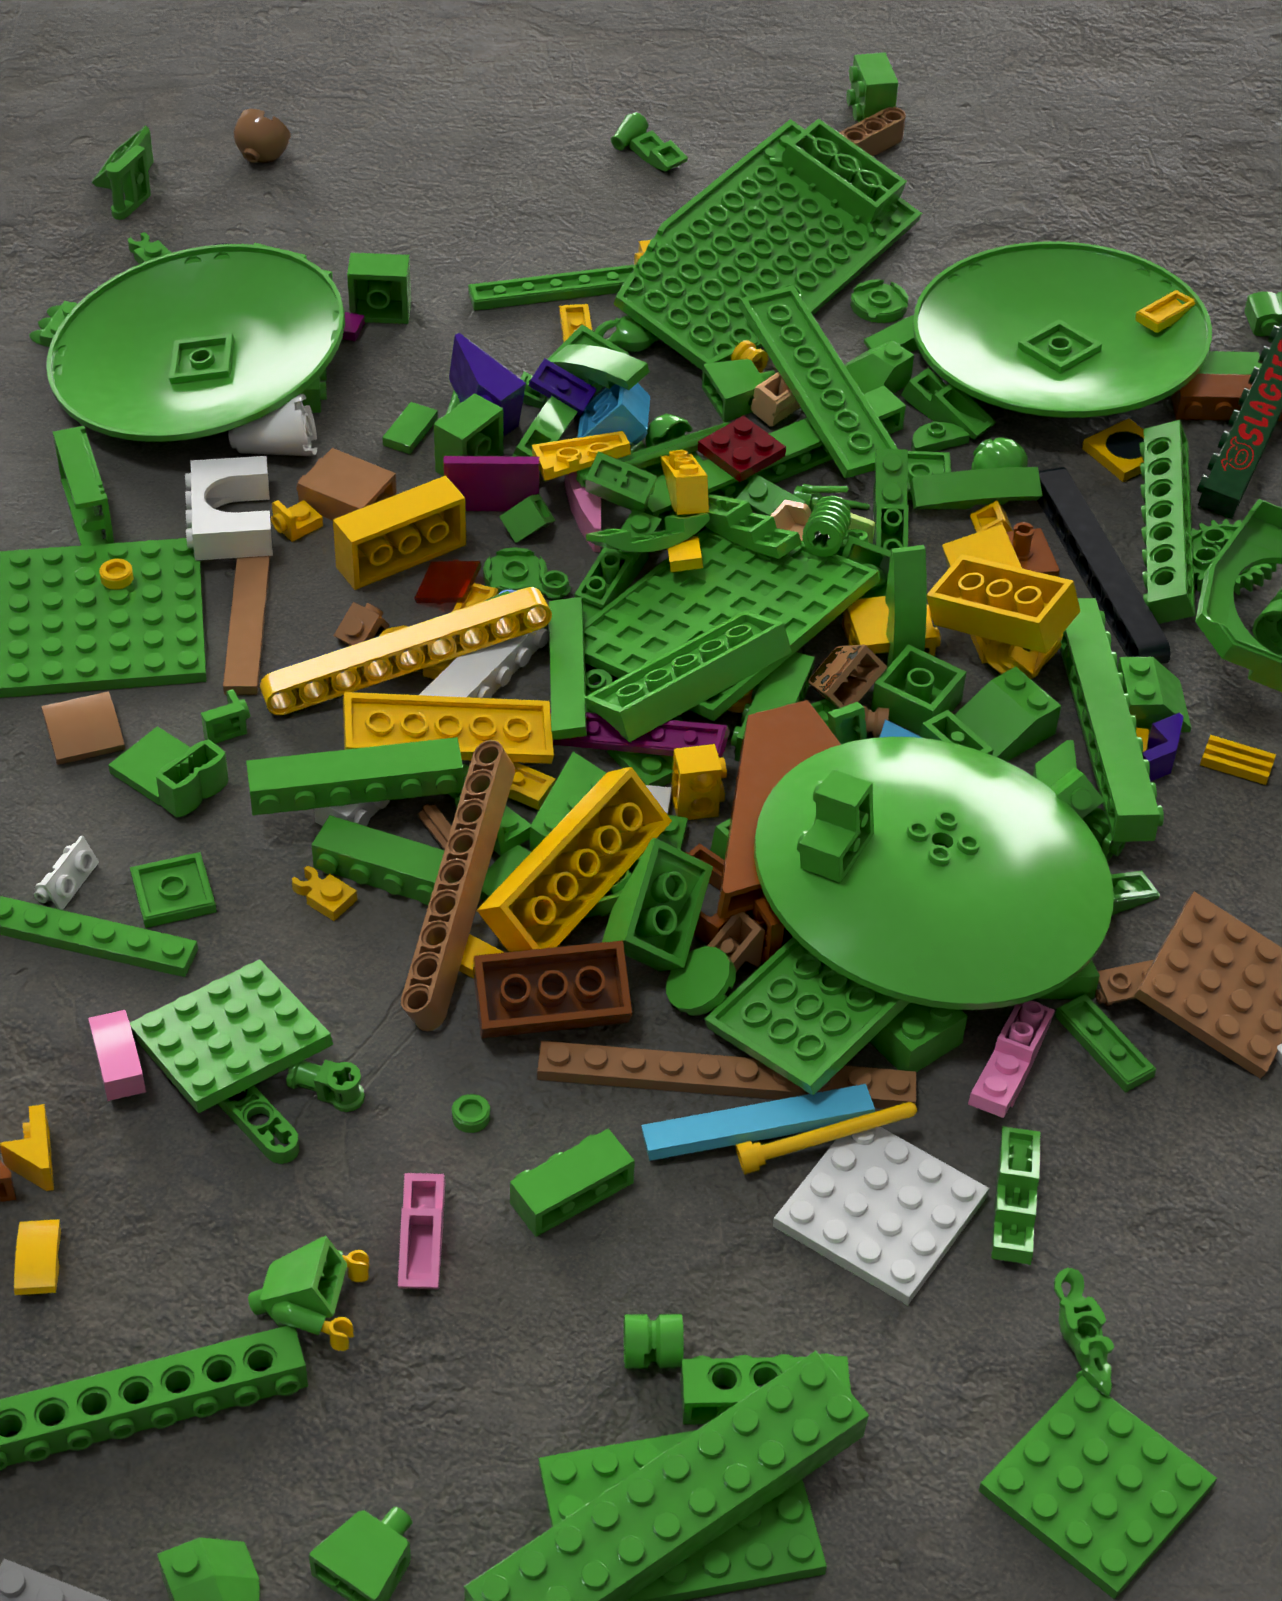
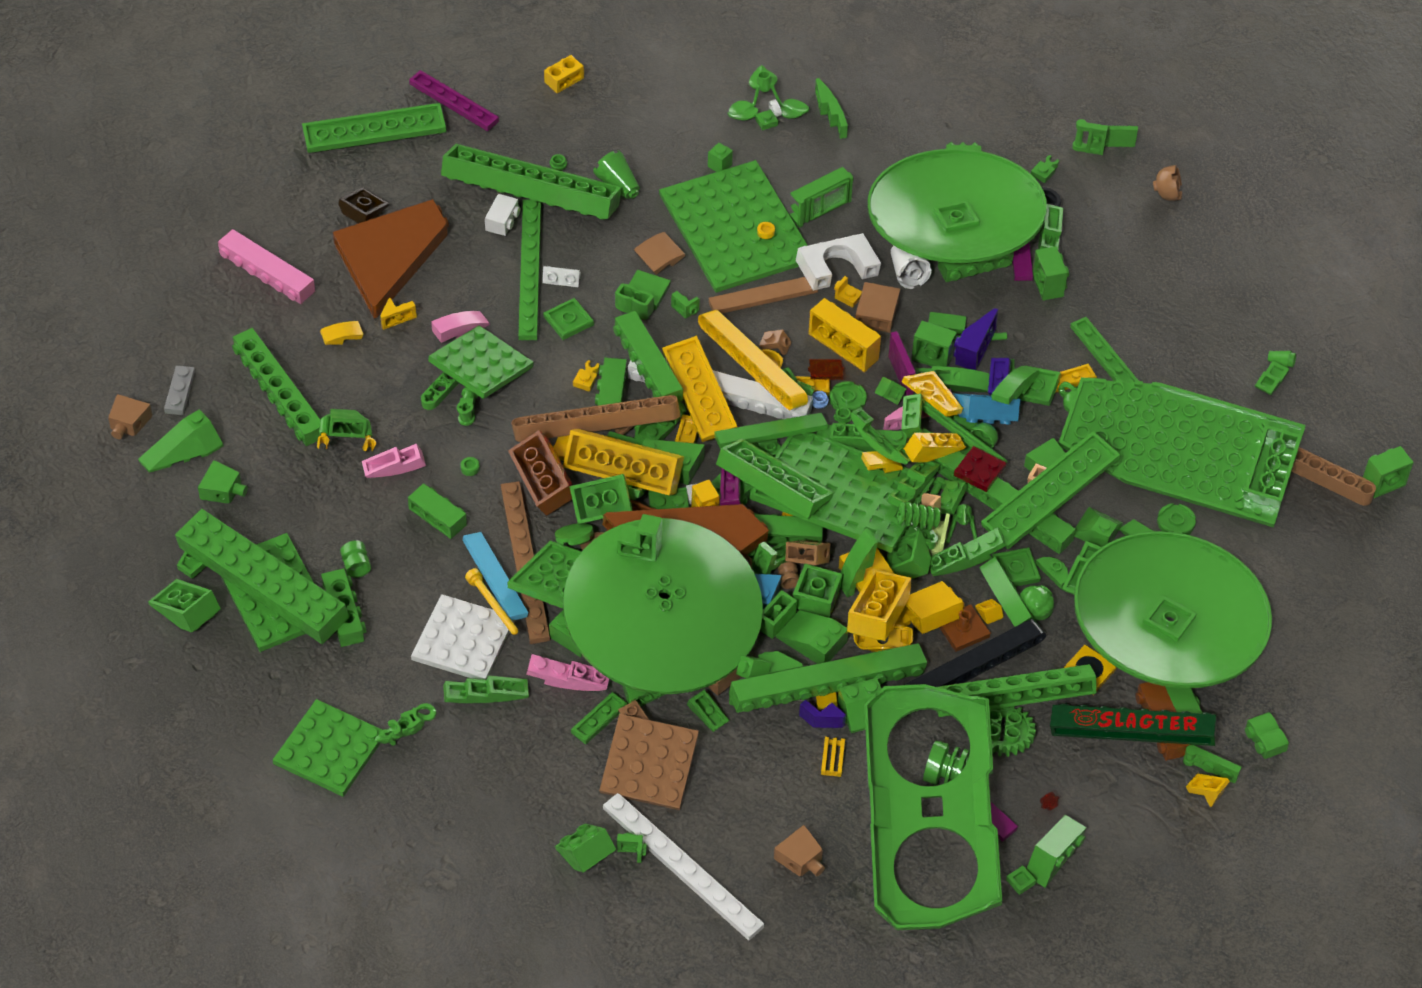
camera: 75 degrees right, 5 degrees up
(1164, 311) = (1217, 662): yellow tile -> none

